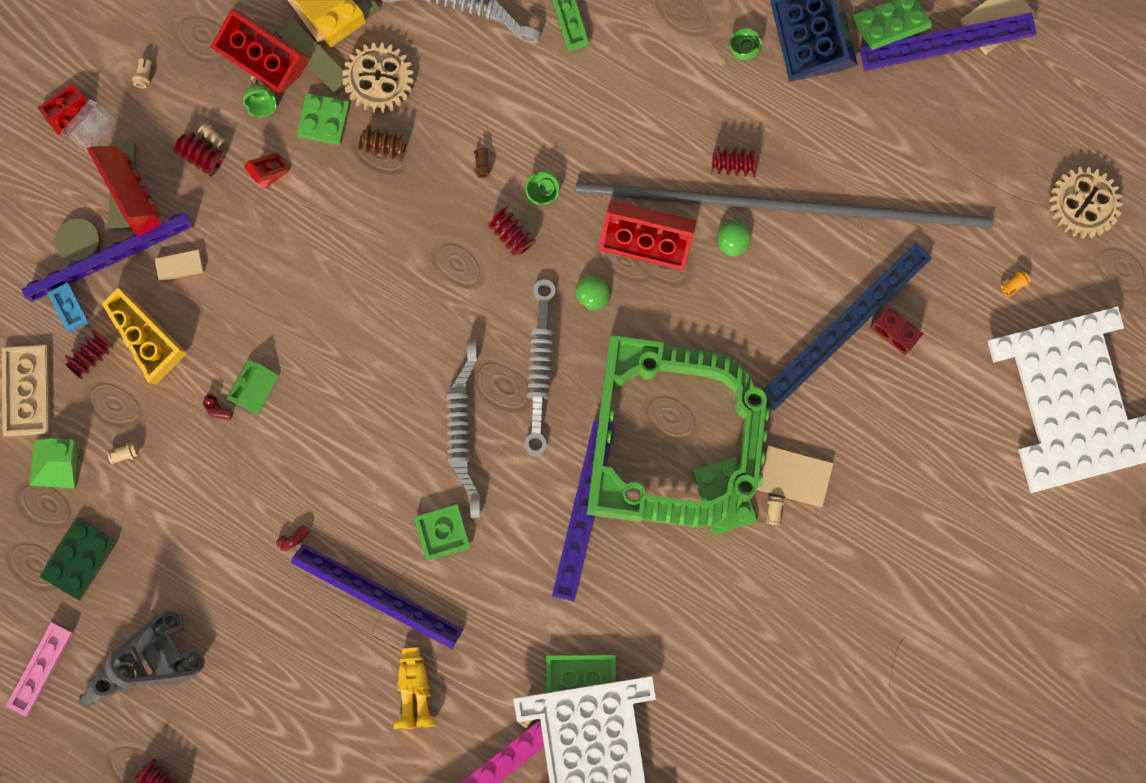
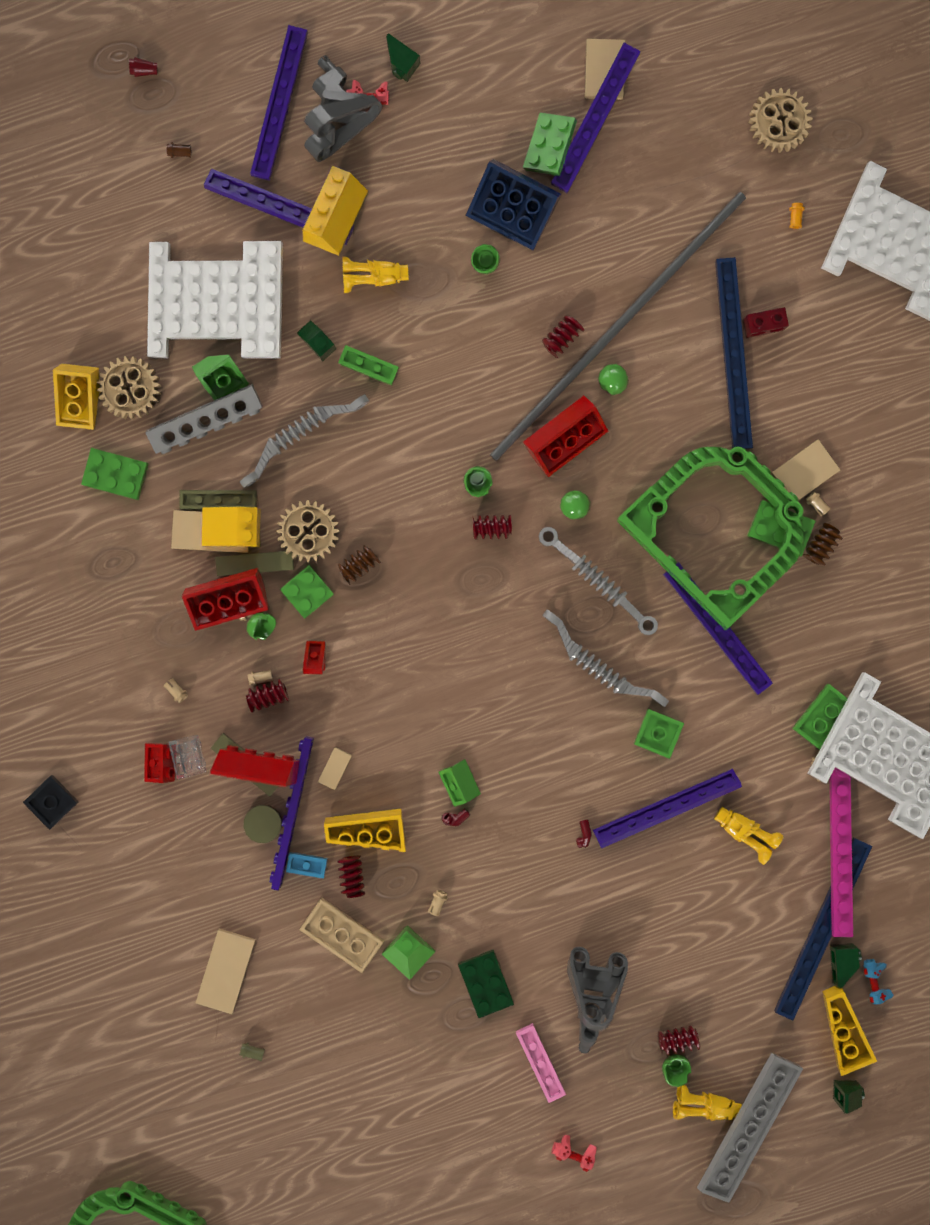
camera: 55 degrees left, 10 degrees up
(482, 164) = (426, 508): reddish brown pin -> none
(740, 545) = (823, 544): none -> reddish brown piece

